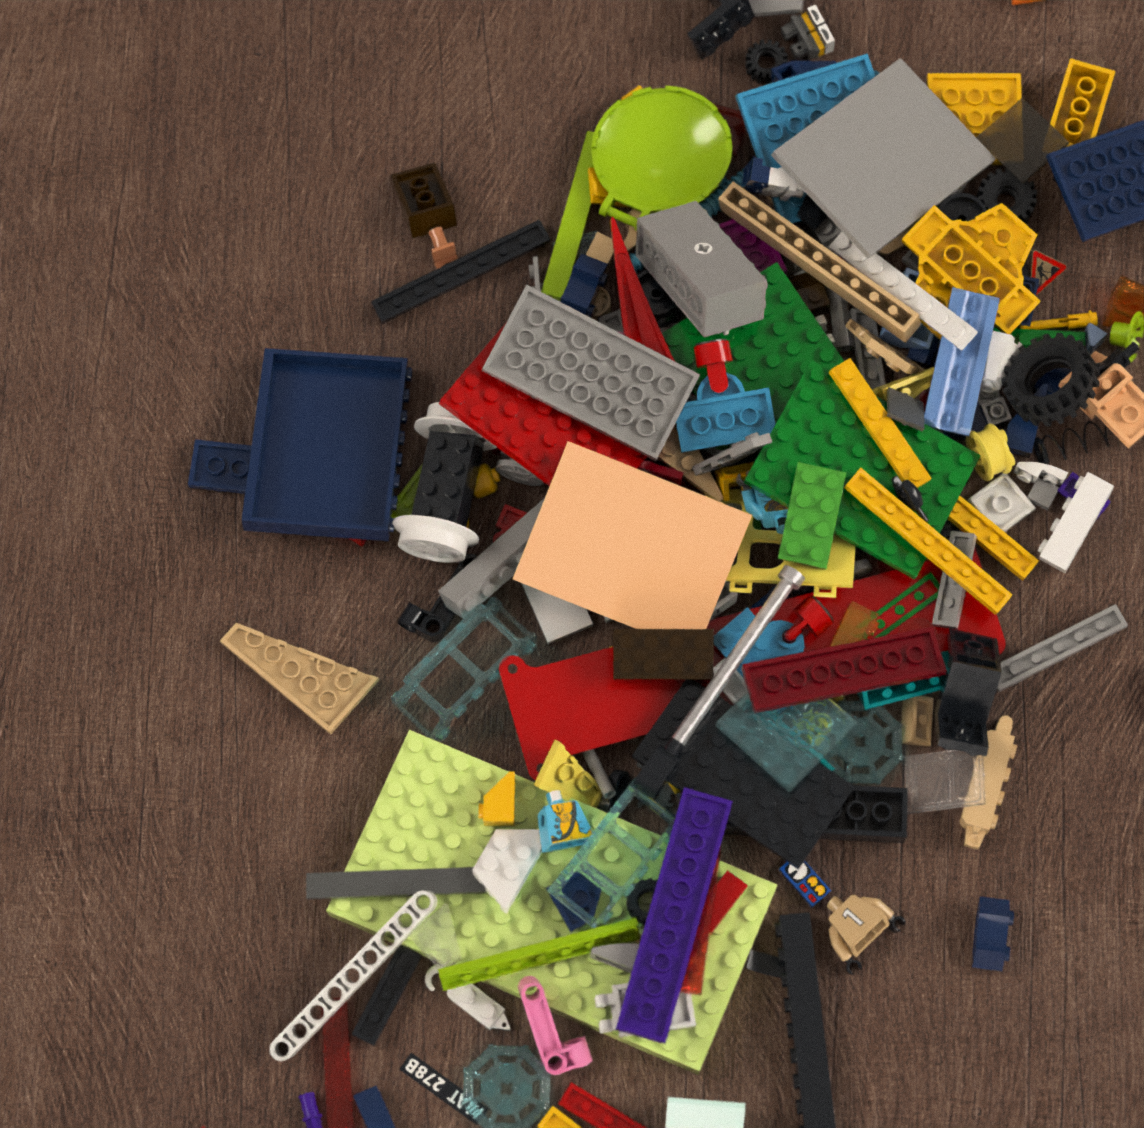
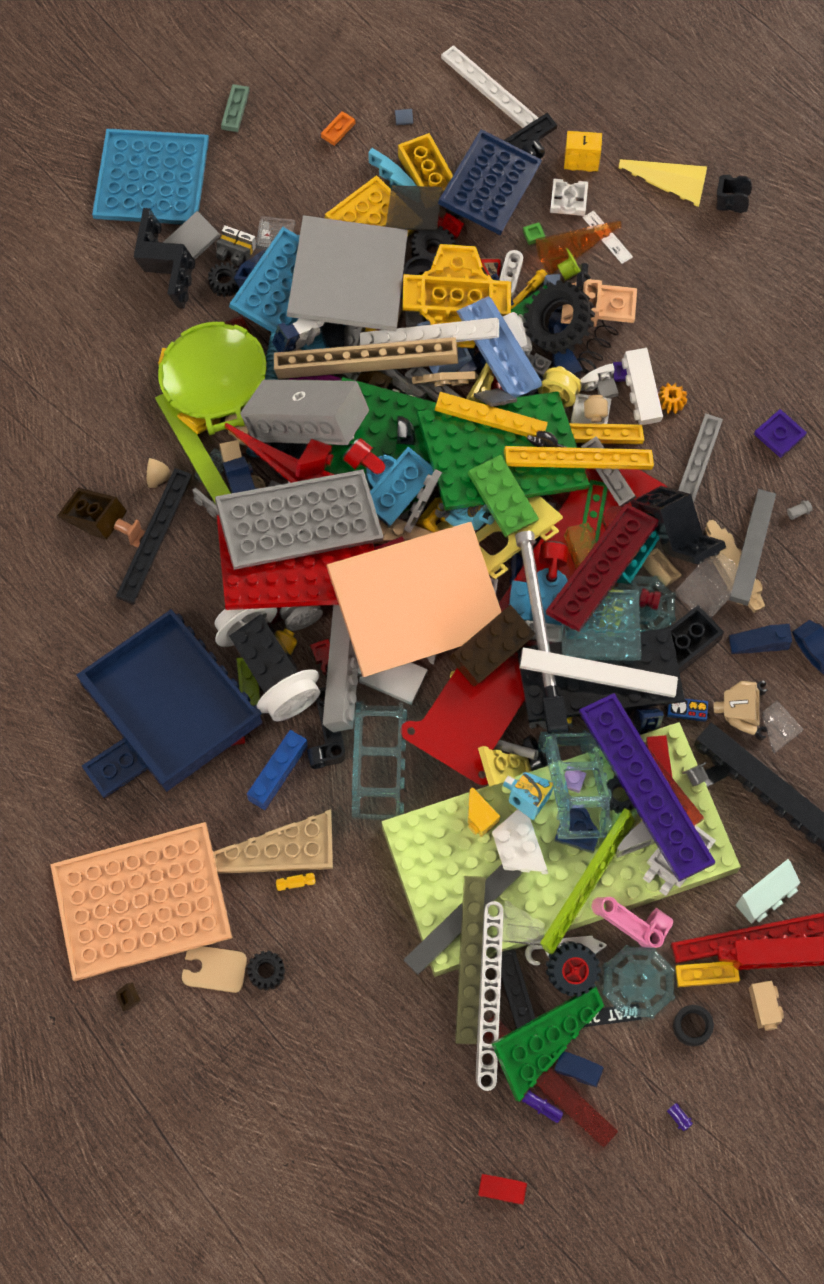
camera: 45 degrees left, 5 degrees down
(47, 688) = (128, 996): none -> dark brown plate
(135, 612) = (140, 901): none -> light nougat tile
(149, 737) = (220, 969): none -> tan piece
(179, 760) = (257, 961): none -> black tyre
(286, 716) = (295, 881): none -> yellow axle
(360, 1059) = (539, 1043): none -> green wing
(364, 597) = (277, 770): none -> blue brick
(381, 910) = (470, 960): none -> olive plate
(453, 1021) = (573, 969): none -> black wheel
(517, 211) = (157, 473): none -> tan brick
(618, 851) = (574, 780): none -> lavender plate
(664, 323) = (314, 458): none -> red slope
(735, 768) = (598, 672): none -> white tile
(738, 948) = (696, 774): none -> dark grey piece
(749, 855) = (647, 719): none -> dark blue slope
(784, 369) = (405, 431): none -> black brick
(864, 42) = (269, 228): none -> clear tile
(869, 743) = (650, 599): none -> dark red wheel
(877, 976) = (780, 726): none -> clear wing
(942, 877) = (761, 639): none -> dark blue slope
(1005, 504) = (596, 408): none -> tan head
(1021, 778) = (752, 547): none -> dark grey tile
(1041, 93) = (389, 169): none -> medium azure slope
(1047, 188) = (451, 223): none -> red bracket
(1066, 284) = (512, 268): none -> white plate
(1103, 552) = (672, 398): none -> light orange gear
(1115, 29) = (404, 116): none -> sand blue slope
(1115, 784) = (800, 509): none -> light grey pin
(1126, 266) = (533, 232): none -> bright green plate

